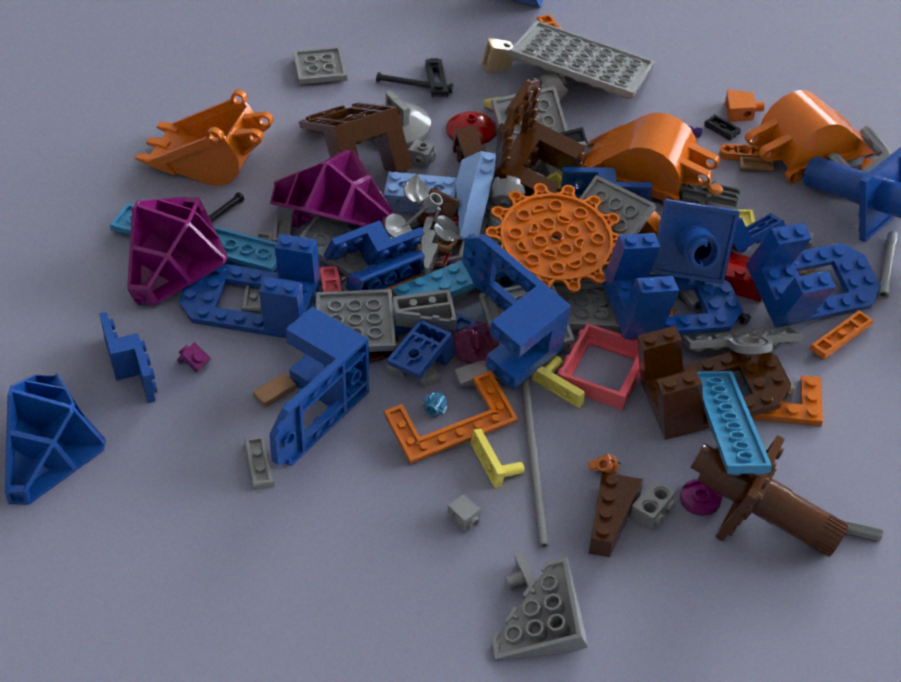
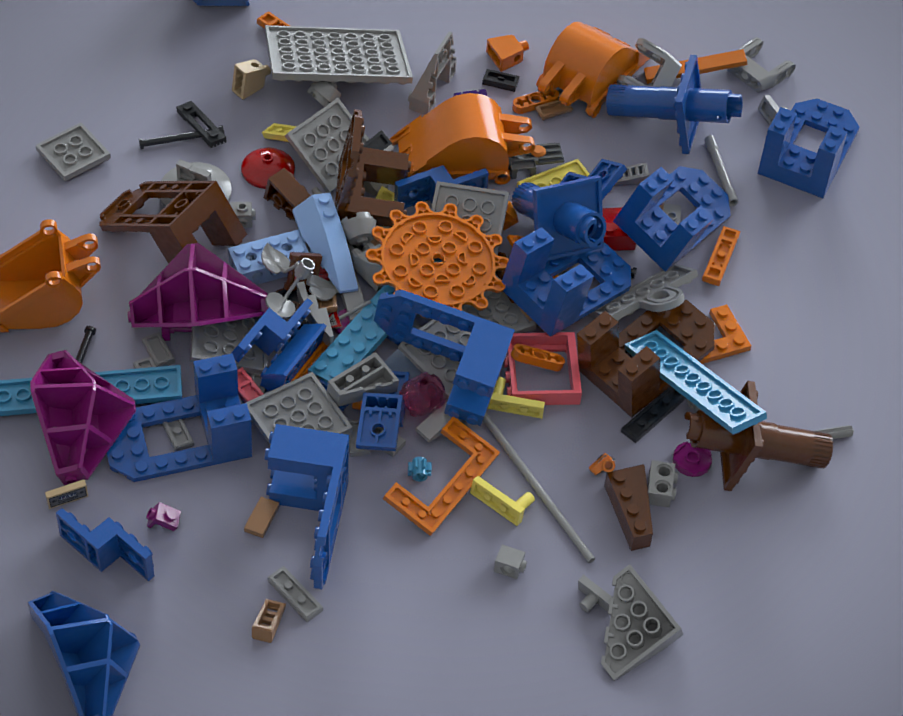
camera: 30 degrees left, 5 degrees up
(129, 309) = (66, 494): none -> tile
(211, 482) = (267, 632): none -> medium nougat slope
(612, 359) = (537, 357): none -> orange beam
(664, 89) = (440, 67): none -> light grey wedge
(688, 443) = (652, 414): none -> black tile

